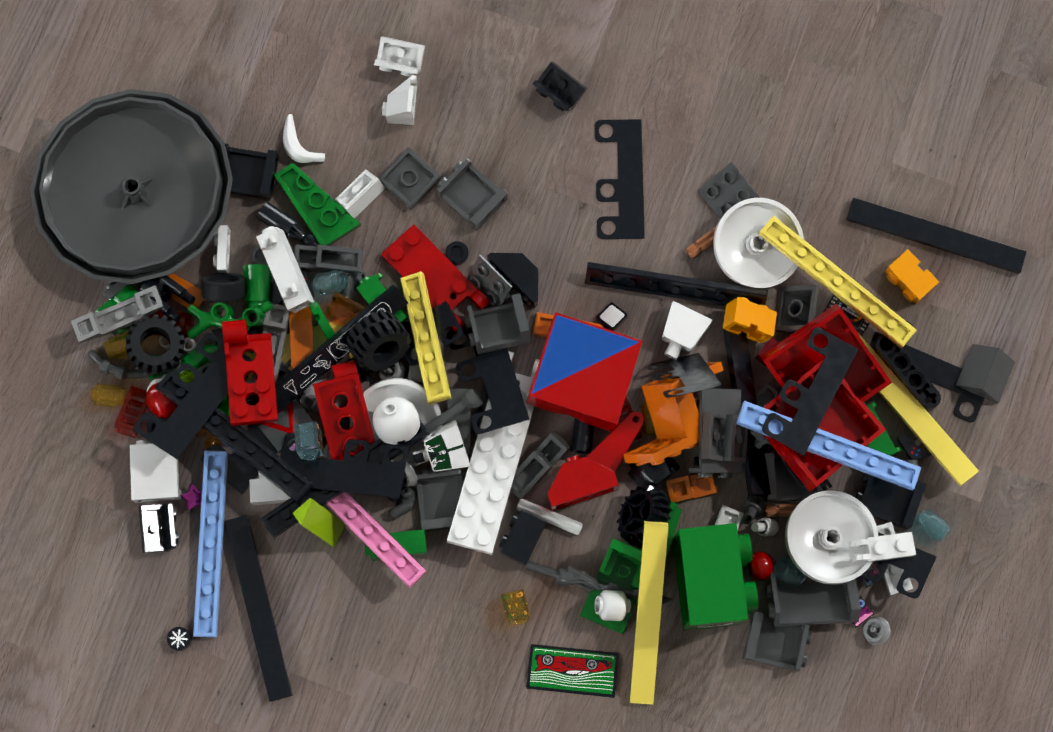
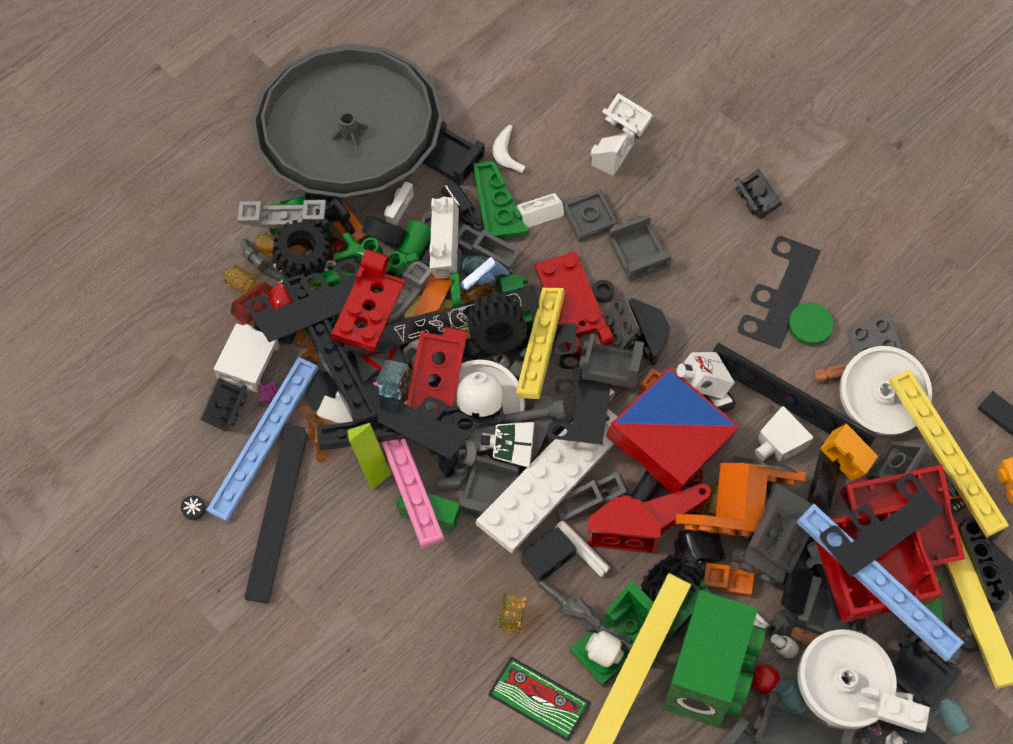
camera: 25 degrees right, 15 degrees down
(253, 513) = (313, 422): none -> clear orange tile
(342, 293) = (485, 273): none -> light blue tile
(590, 300) = (706, 374): none -> white torso
(663, 201) = (810, 324): none -> green tile

